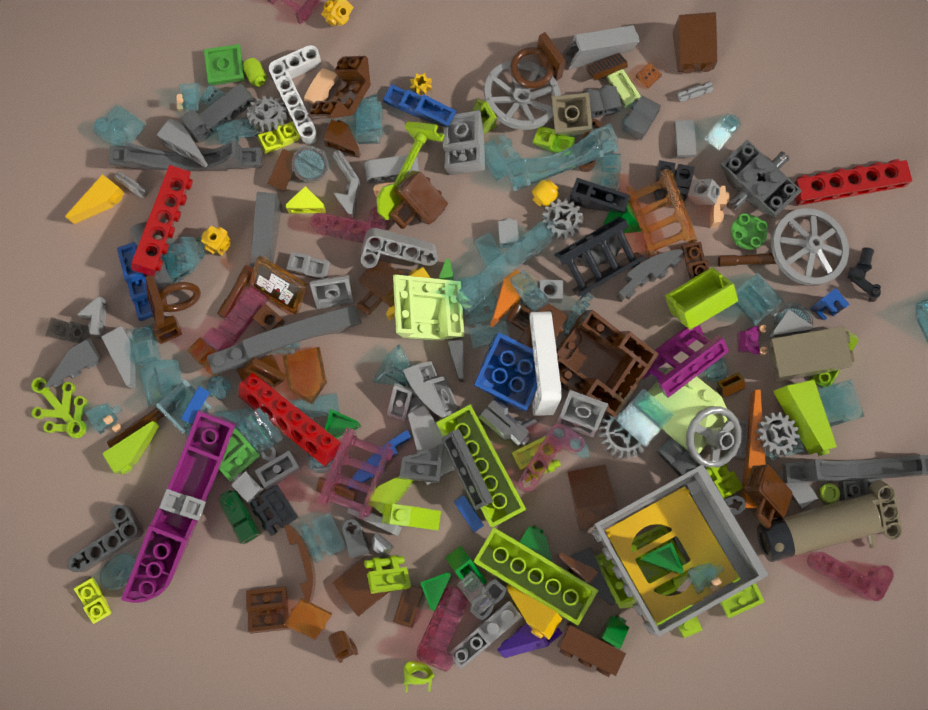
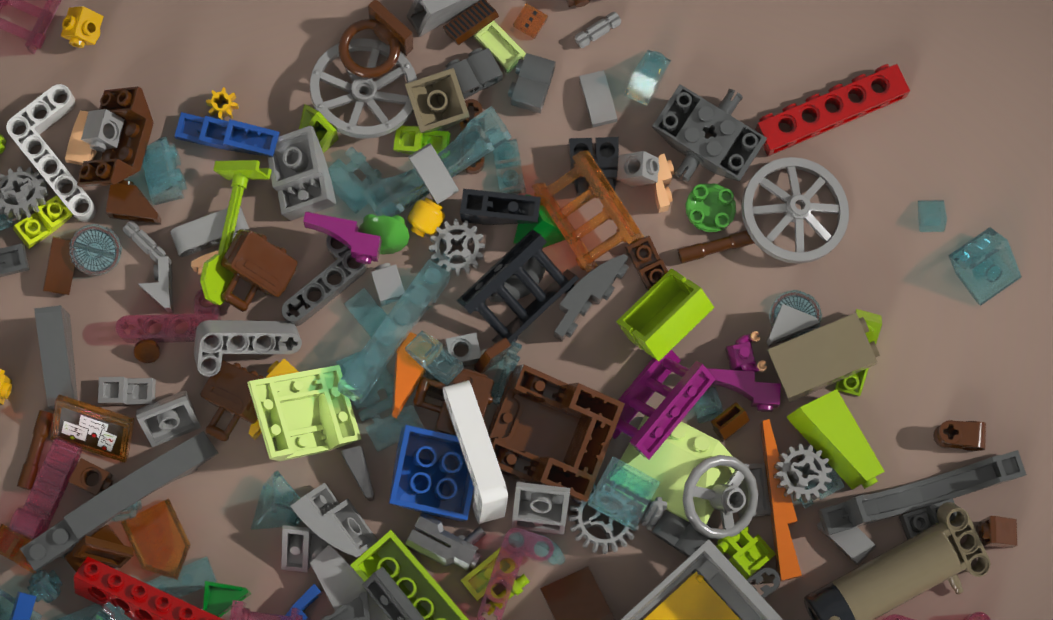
camera: 20 degrees left, 0 degrees up
(305, 203) = (102, 305): neon yellow slope -> none
(328, 241) = (146, 351): none -> reddish brown piece
(334, 82) = (102, 130): none -> light grey brick
(446, 273) = (317, 356): bright green slope -> none
(460, 221) = (321, 284): none -> dark grey beam
(496, 201) = (362, 245): none -> magenta slope
(513, 197) = (391, 229): none -> bright green dish
(558, 162) = (433, 173): none -> light grey slope
(571, 298) = (492, 356): none -> reddish brown tile
(662, 437) = (654, 513): none -> light grey axle
(757, 299) = (740, 296): clear light blue slope -> none
(757, 372) = (762, 395): none -> magenta slope
(768, 493) = (808, 555): reddish brown piece -> none
(828, 493) = (889, 534): lime tile -> none
(833, 302) = (838, 280): blue hinge -> none
(841, 403) = (878, 411): clear light blue slope -> none
(859, 272) = (866, 230): black pin -> none
(900, 434) = (965, 435): none -> reddish brown piece
(907, 274) = (932, 216): none -> clear light blue slope
(912, 510) = (998, 532): none -> reddish brown slope

